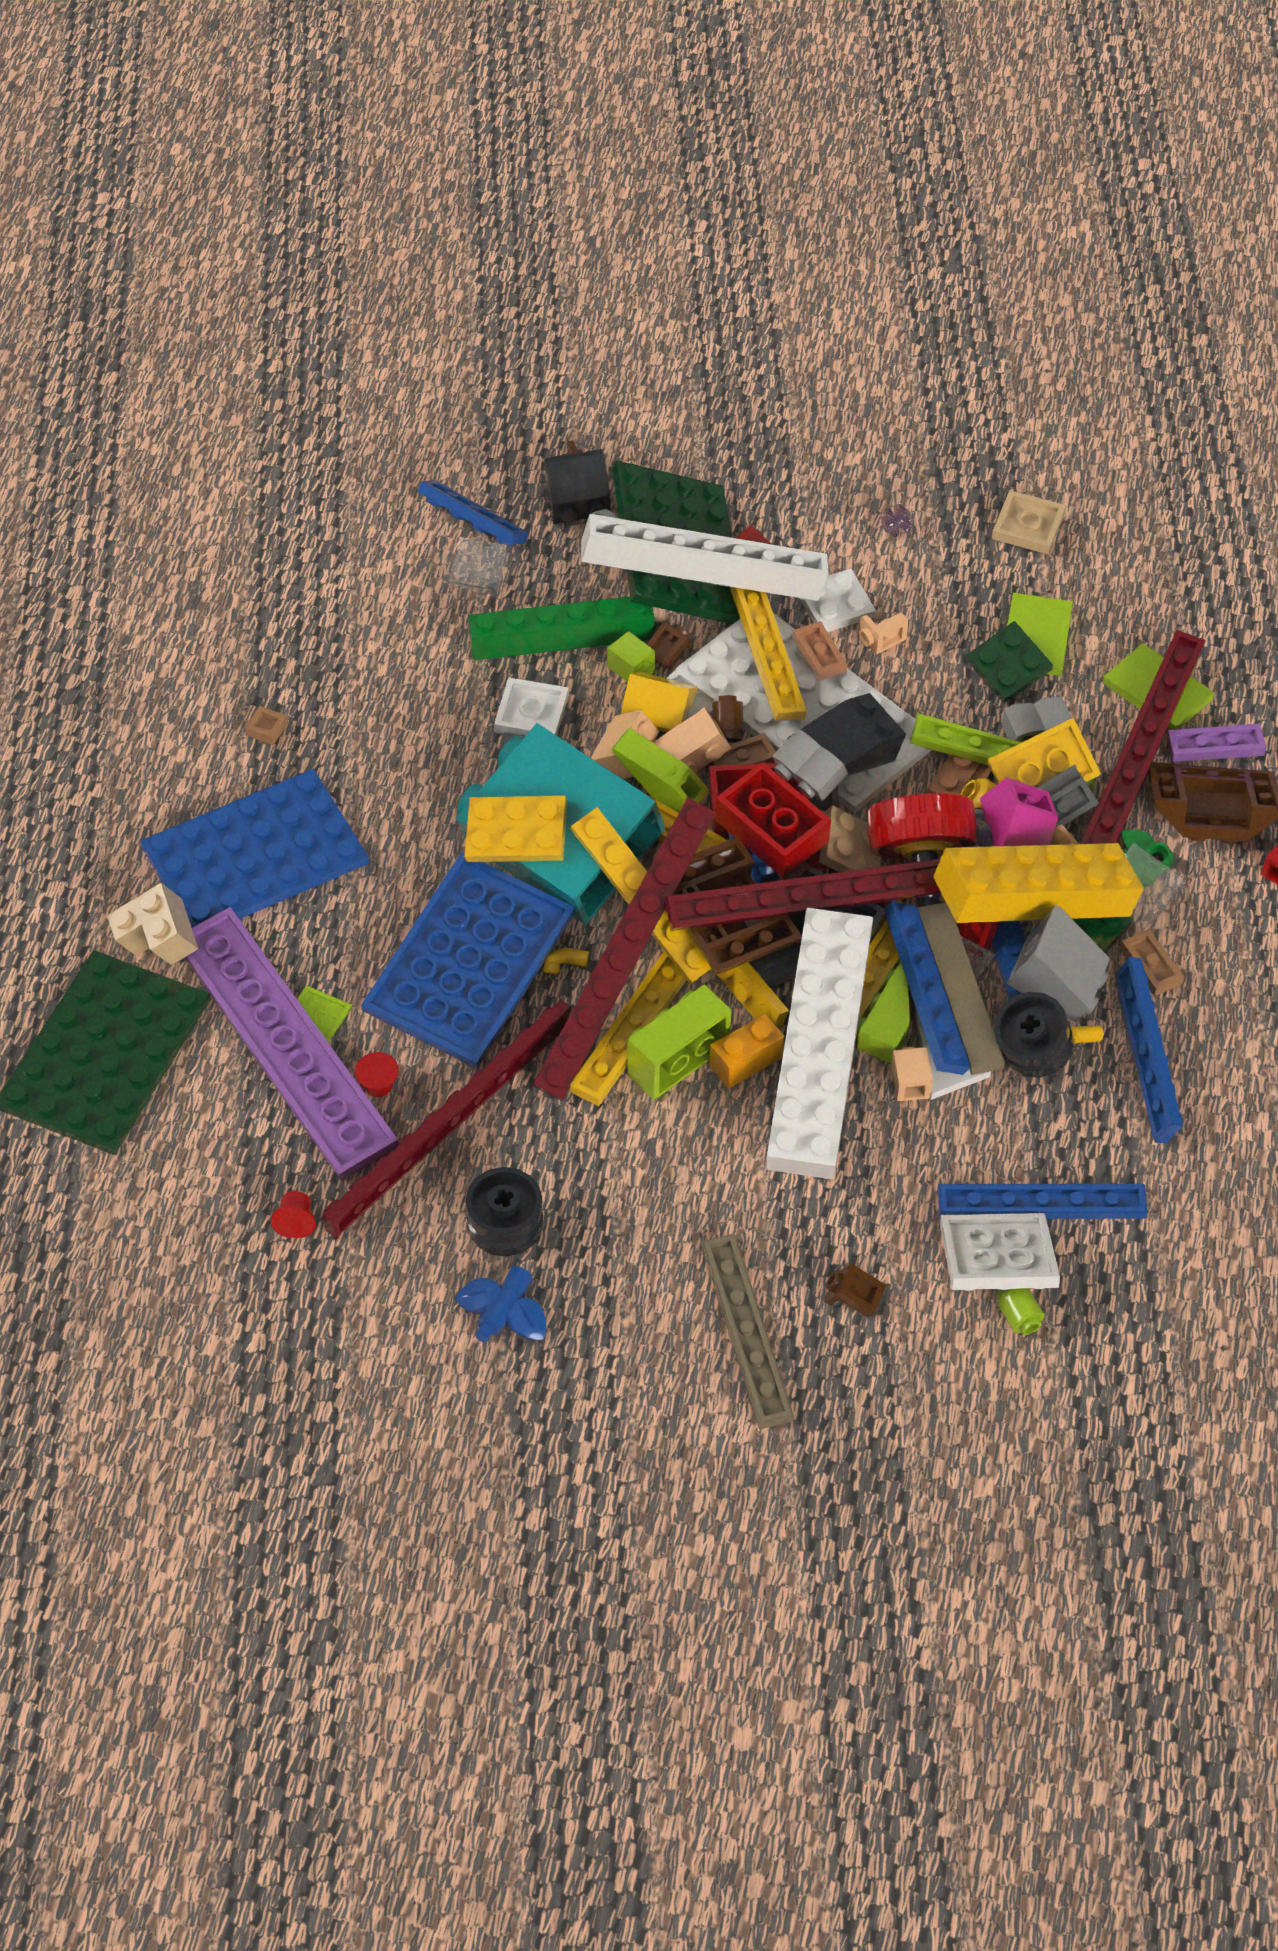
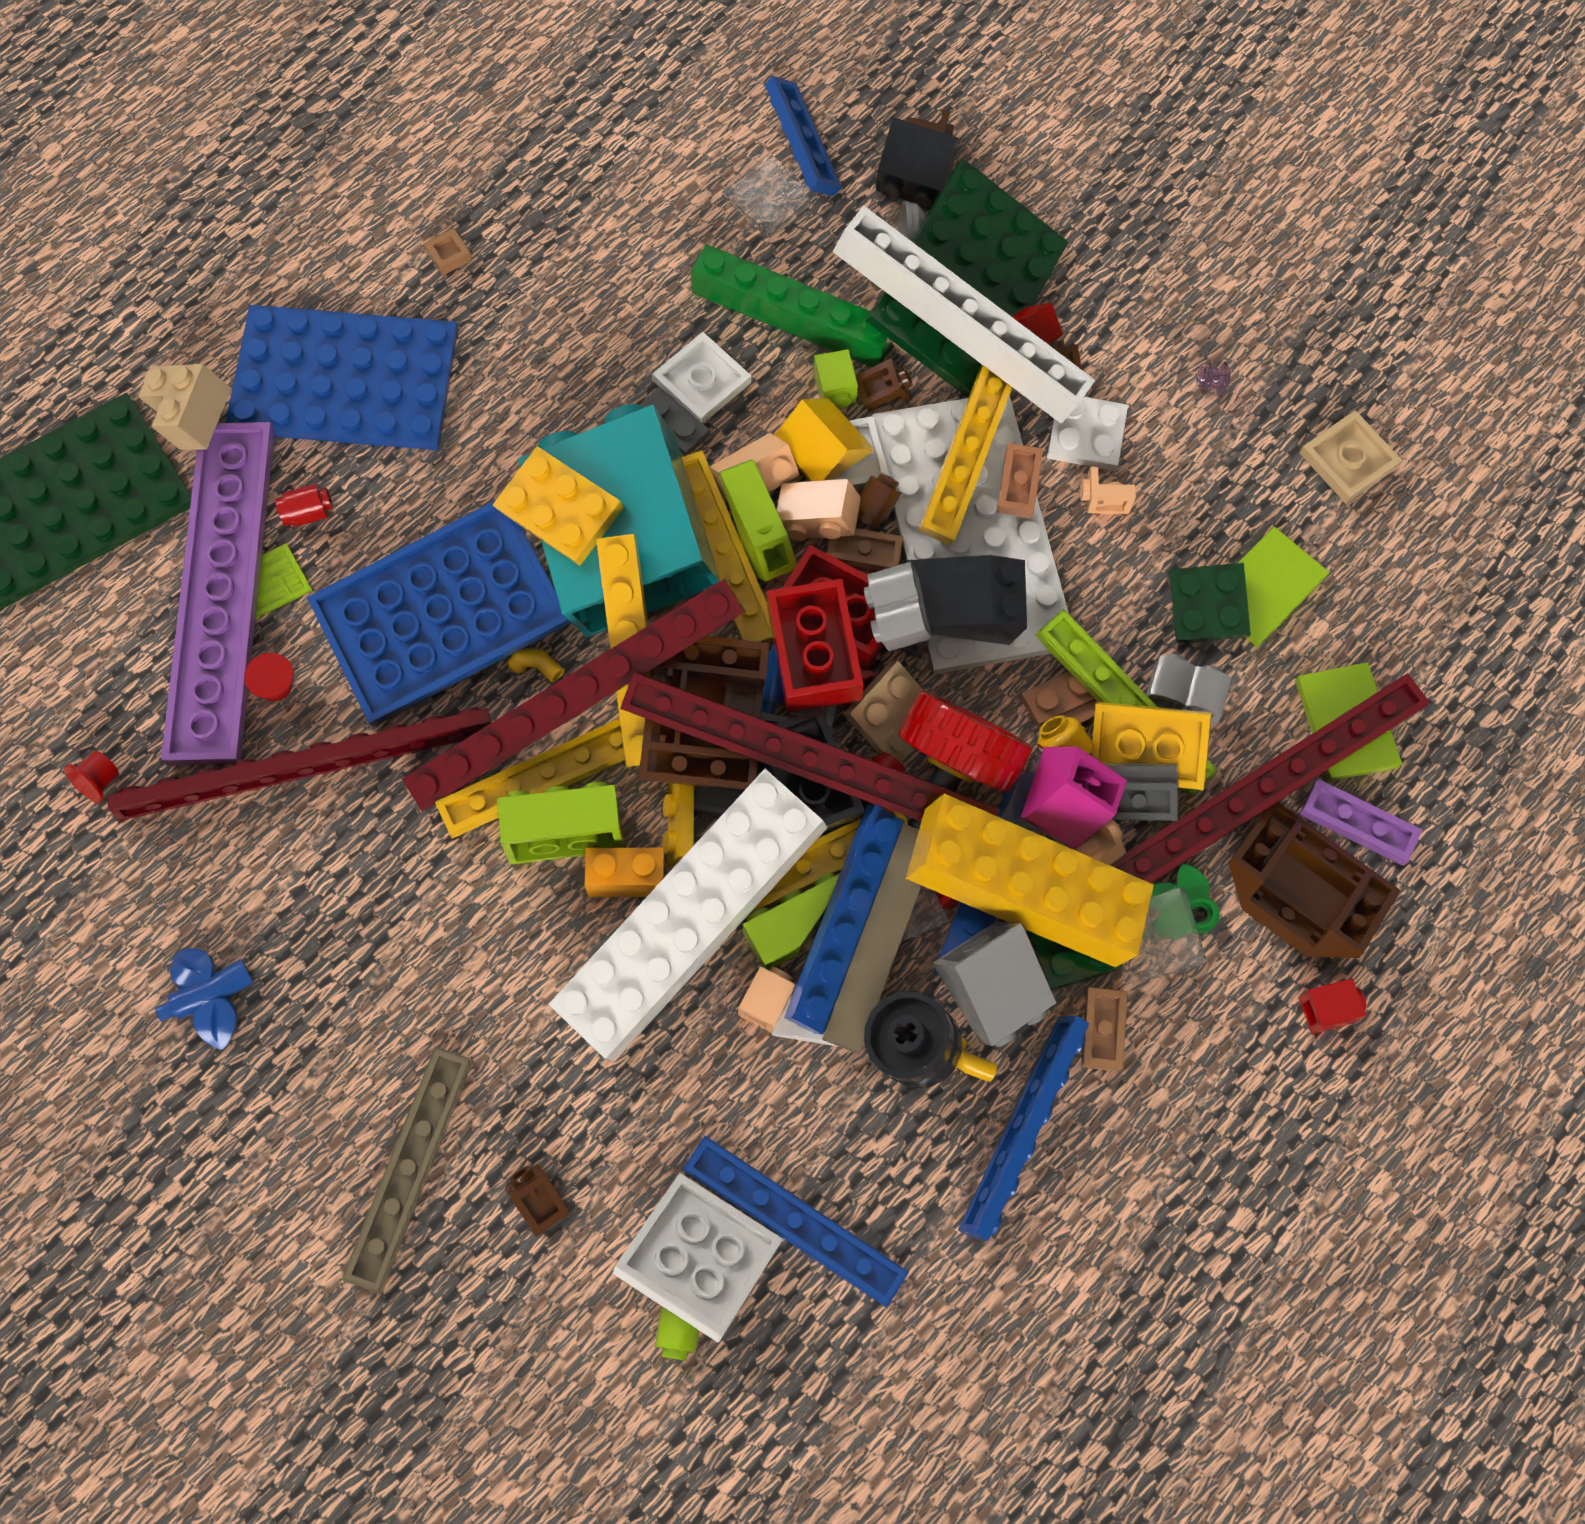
camera: 30 degrees right, 15 degrees up
(301, 950) = (304, 505): none -> red brick
(504, 1211) = (272, 897): black wheel -> none

